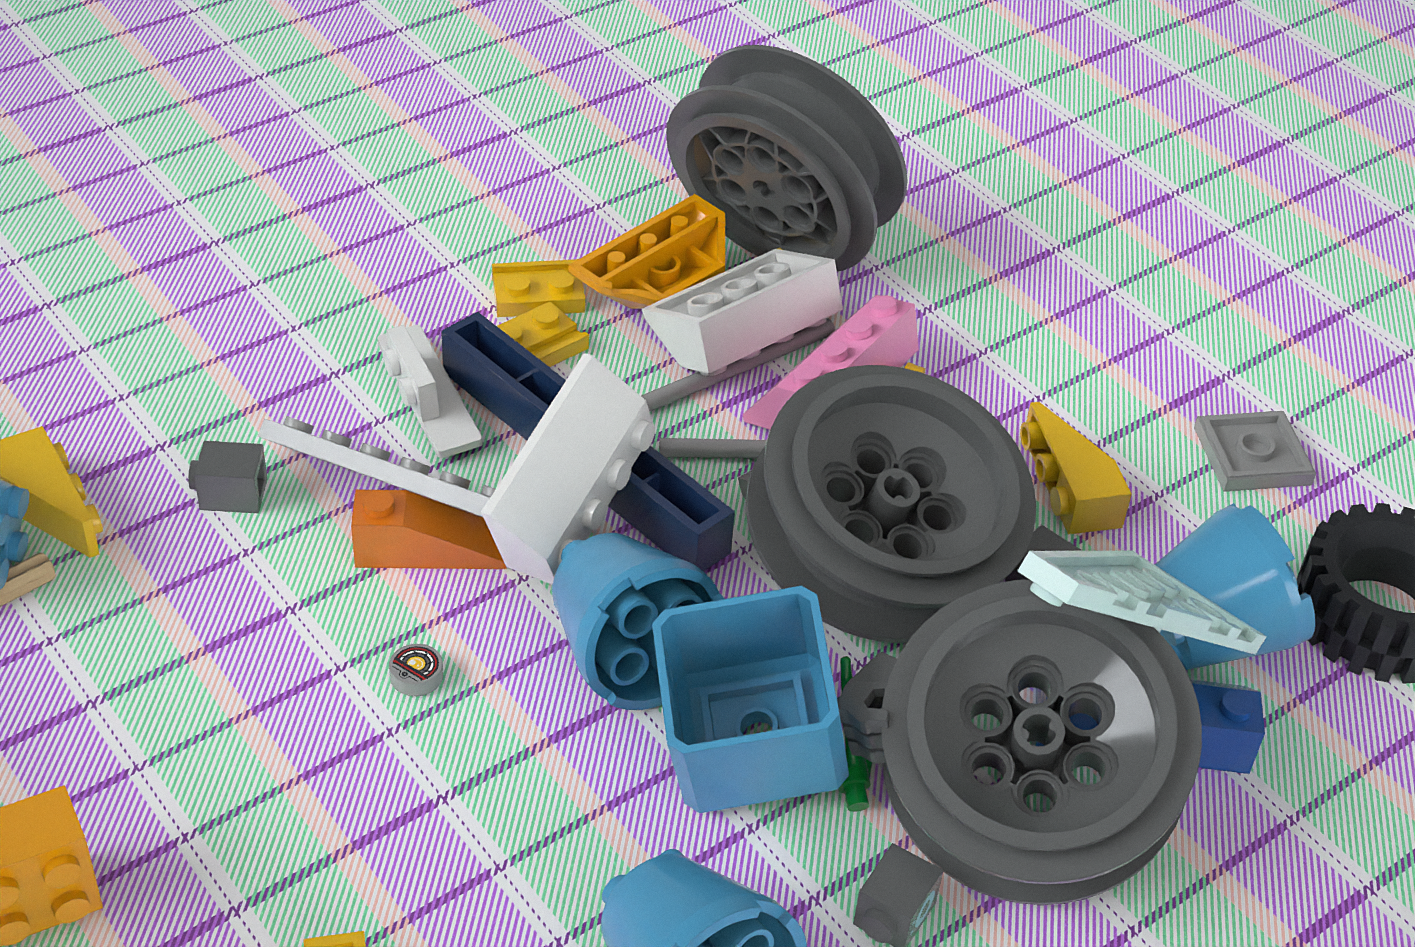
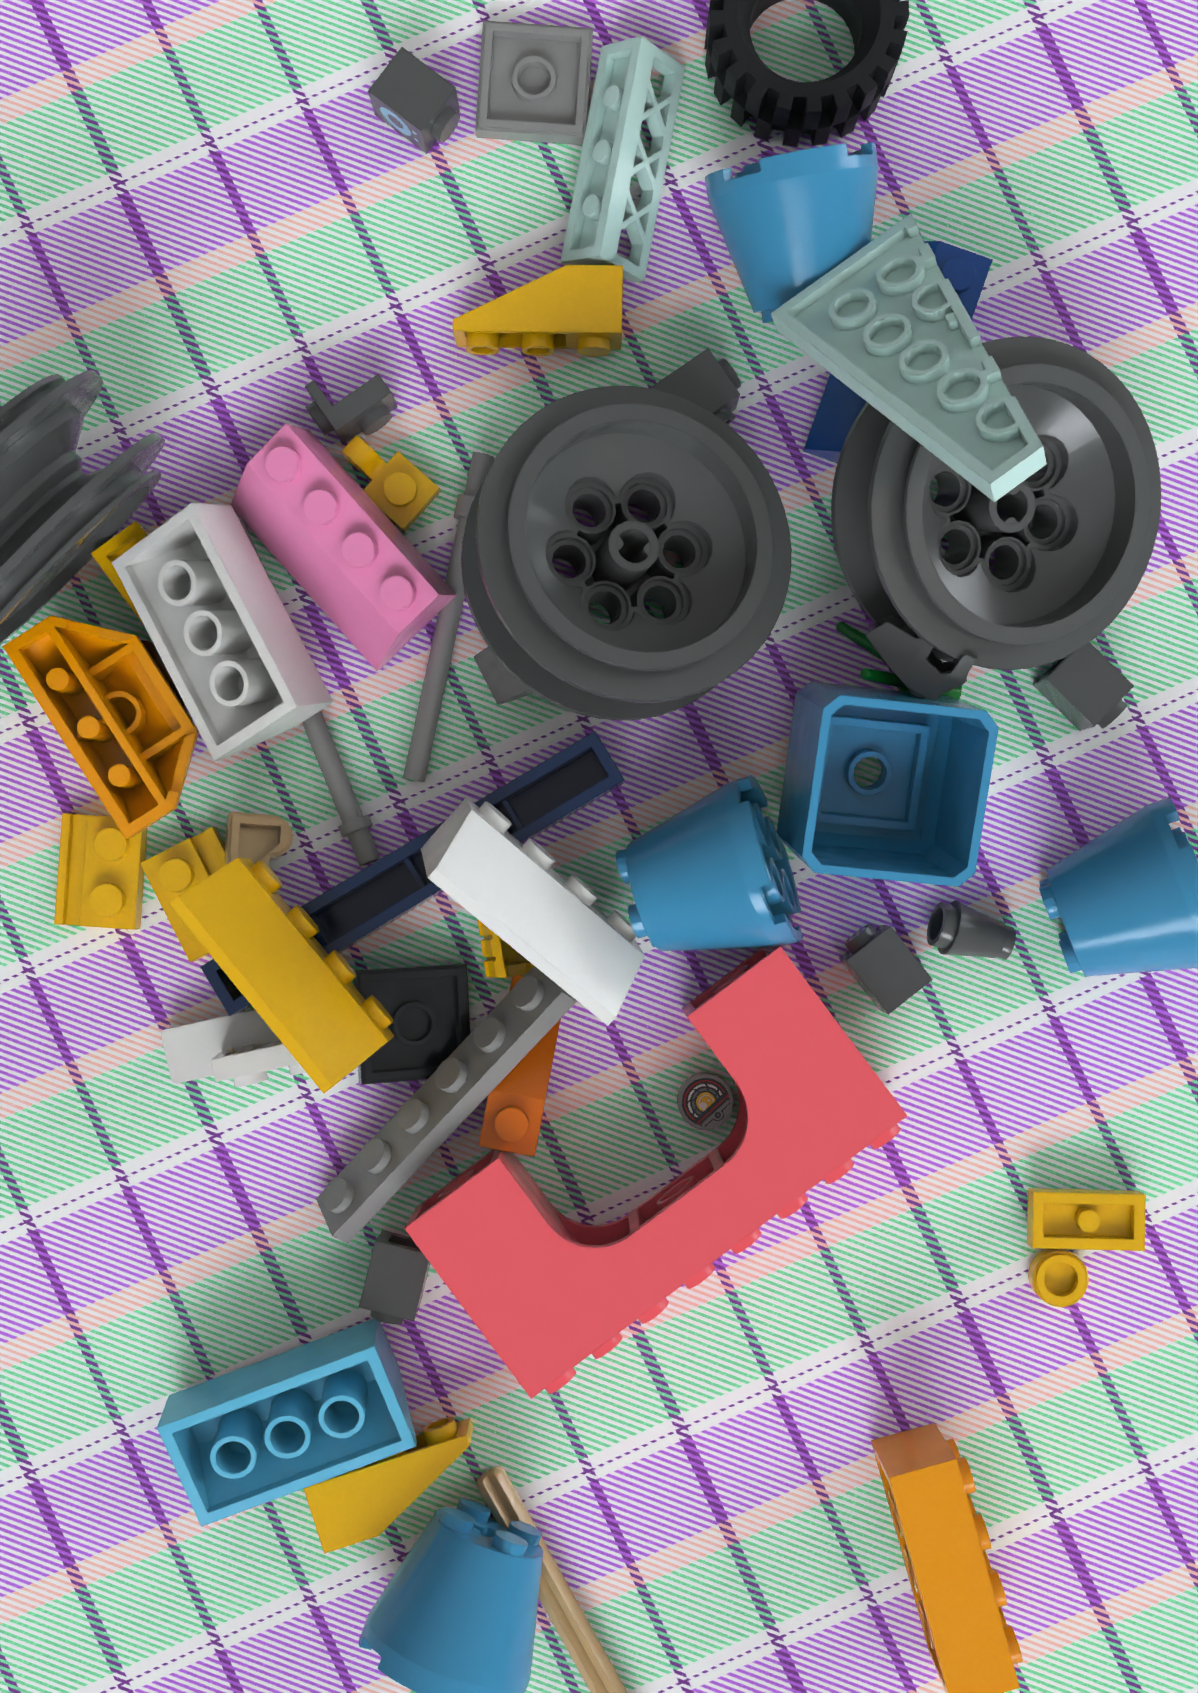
camera: 75 degrees left, 45 degrees up
(101, 417) = (288, 1422): none -> medium azure slope
(418, 706) = (566, 1288): none -> coral arch
(458, 445) = (428, 1019): none -> black tile
(481, 327) = (285, 970): none -> yellow slope
(570, 349) = (256, 837): none -> tan tile
(571, 776) = (883, 966): none -> dark grey brick
(622, 837) = (967, 932): none -> dark grey cone
(944, 364) = (360, 411): none -> dark grey bracket
(1198, 376) = (415, 101): none -> dark grey brick
(1222, 488) = (615, 153): none -> light aqua fence

